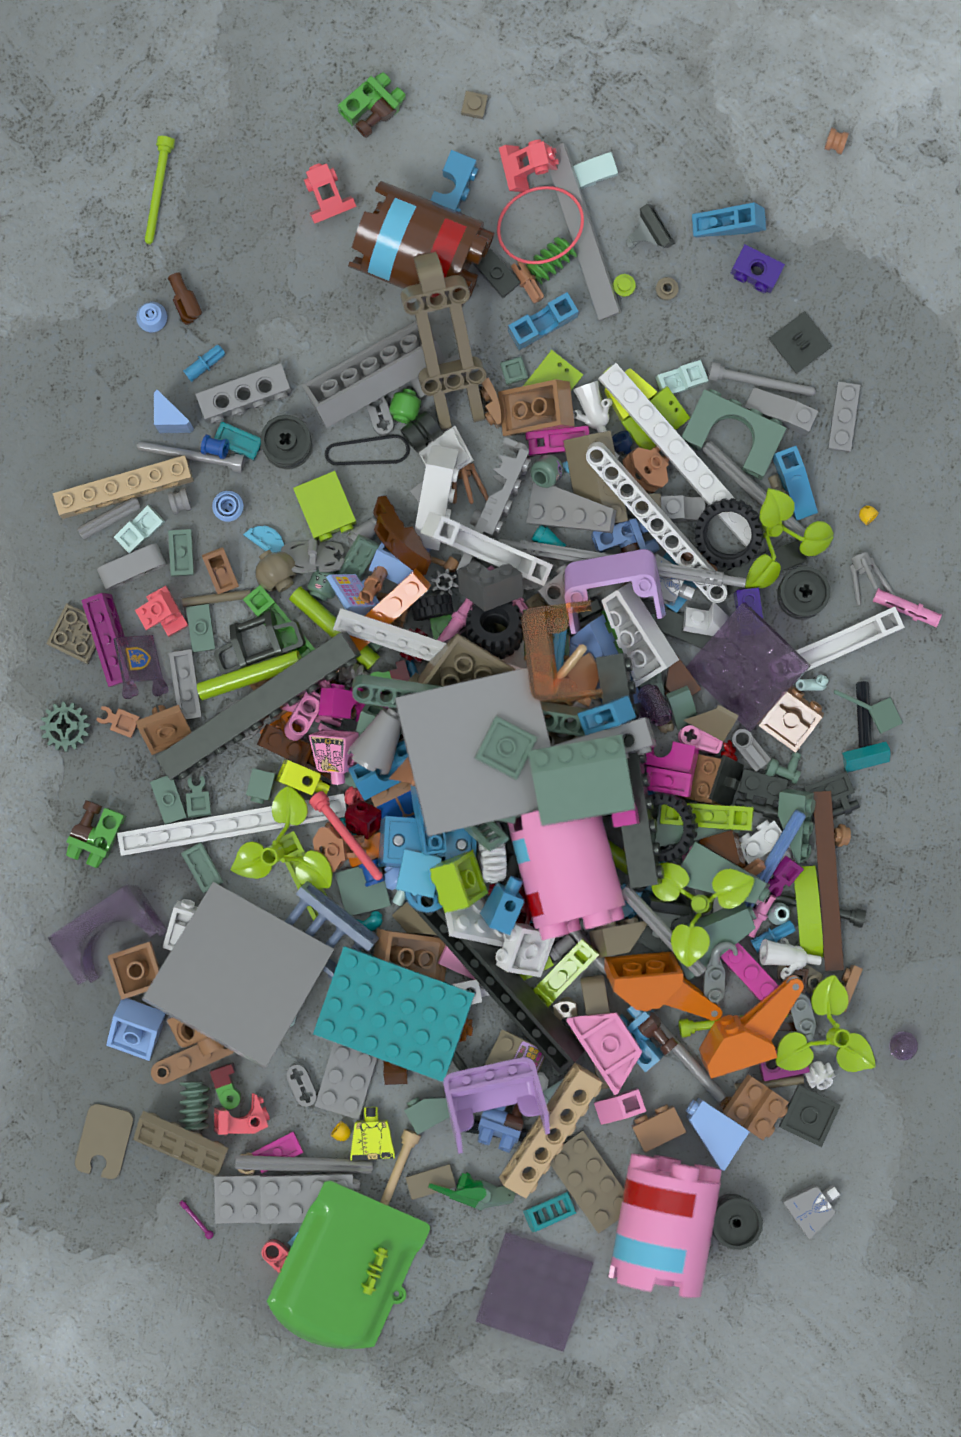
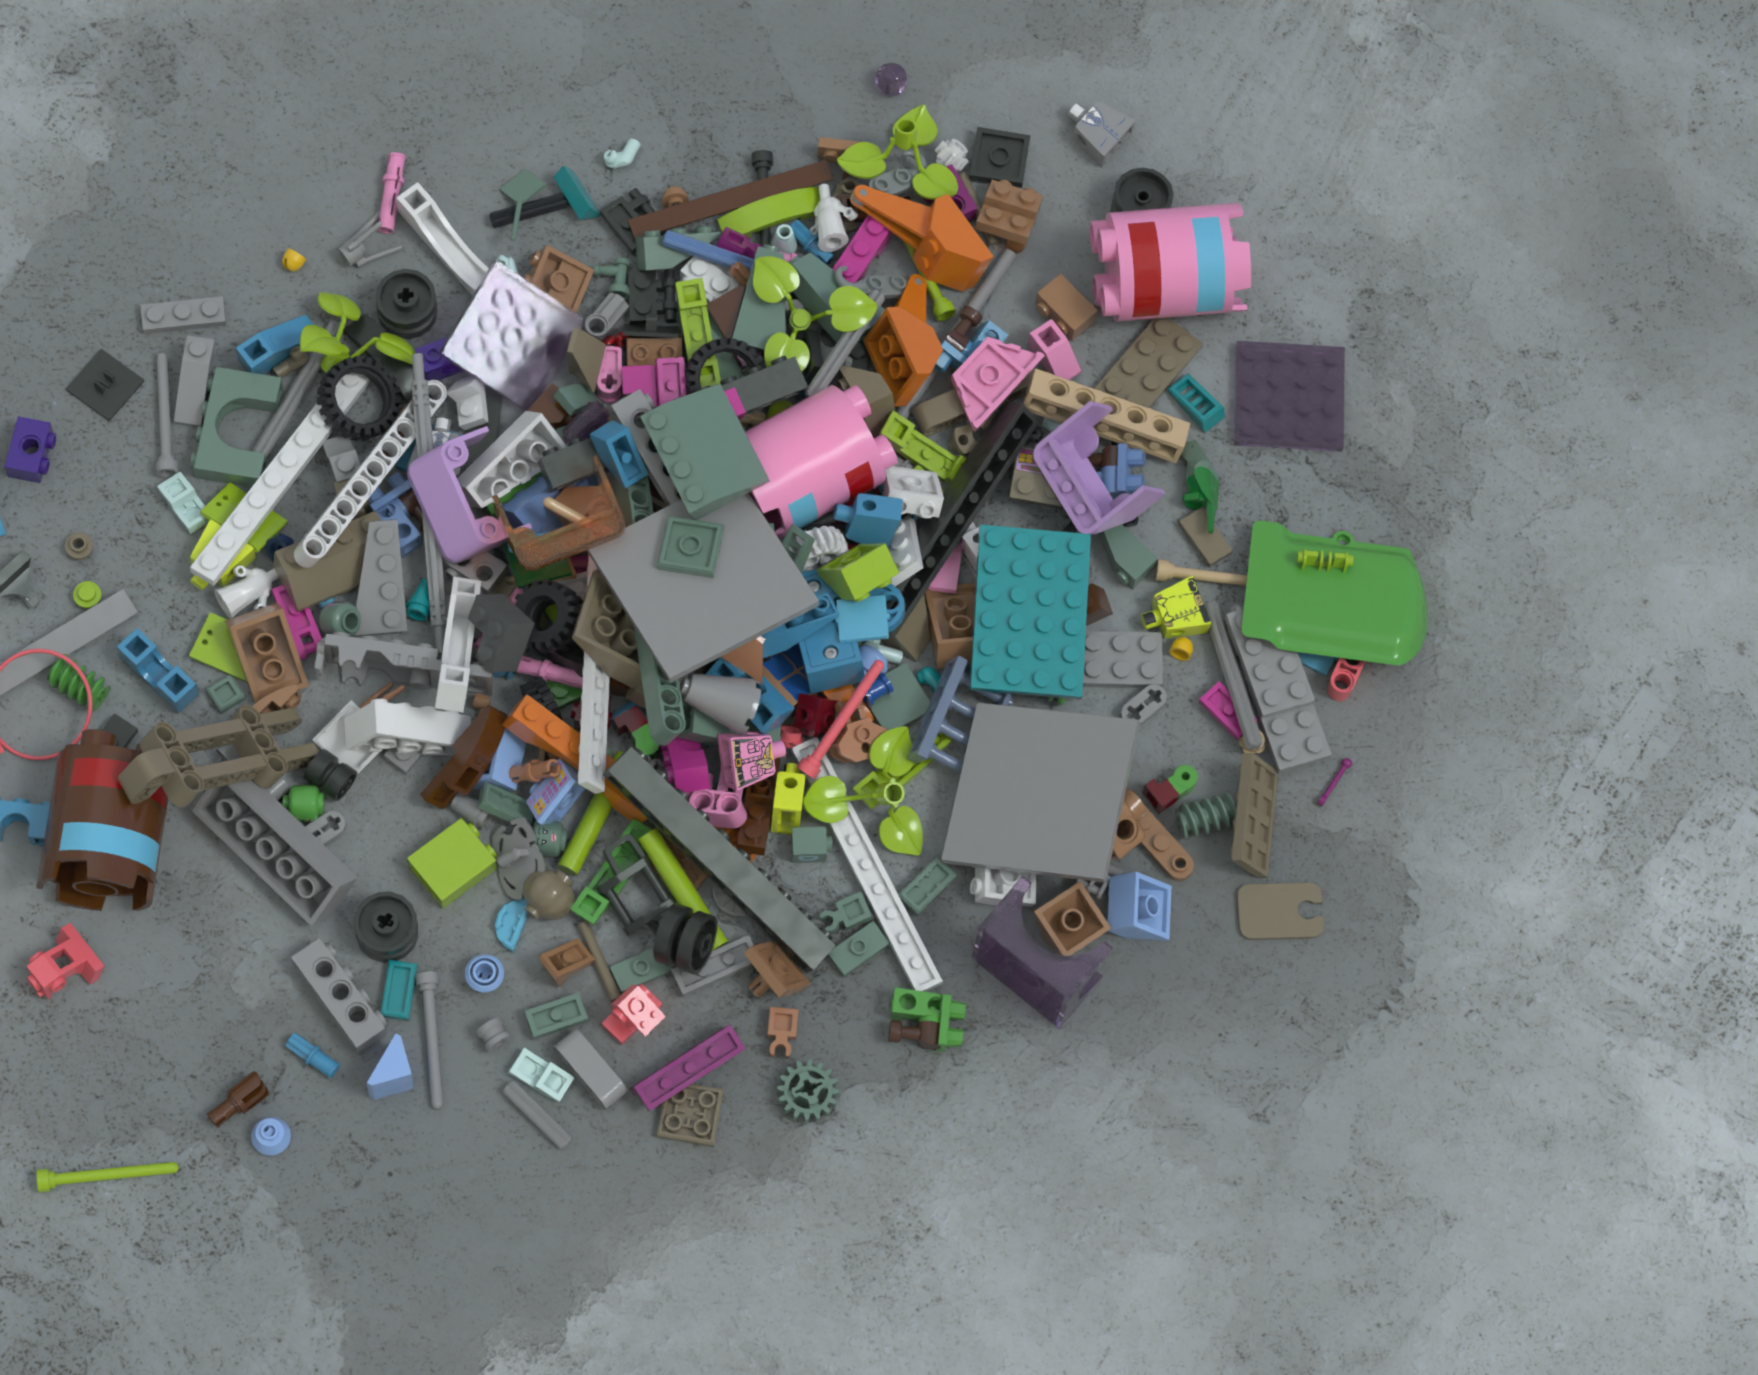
camera: 110 degrees left, 15 degrees down
(123, 487) = (495, 1104): tan brick -> none
(139, 663) = (709, 1021): clear purple flag -> none
(203, 662) = (685, 938): none -> pearl dark grey wheel
(215, 446) = (415, 1008): blue bush -> none
(226, 1124) = (1214, 766): coral tile -> none
(367, 440) = (382, 831): black piece -> none
(445, 576) = (505, 694): light grey gear -> none
(528, 282) = (112, 703): nougat axle -> none
(649, 467) = (303, 505): nougat hinge -> none
(716, 1131) = (1051, 243): light blue slope -> none
(890, 804) = (623, 158): none -> light aqua arm

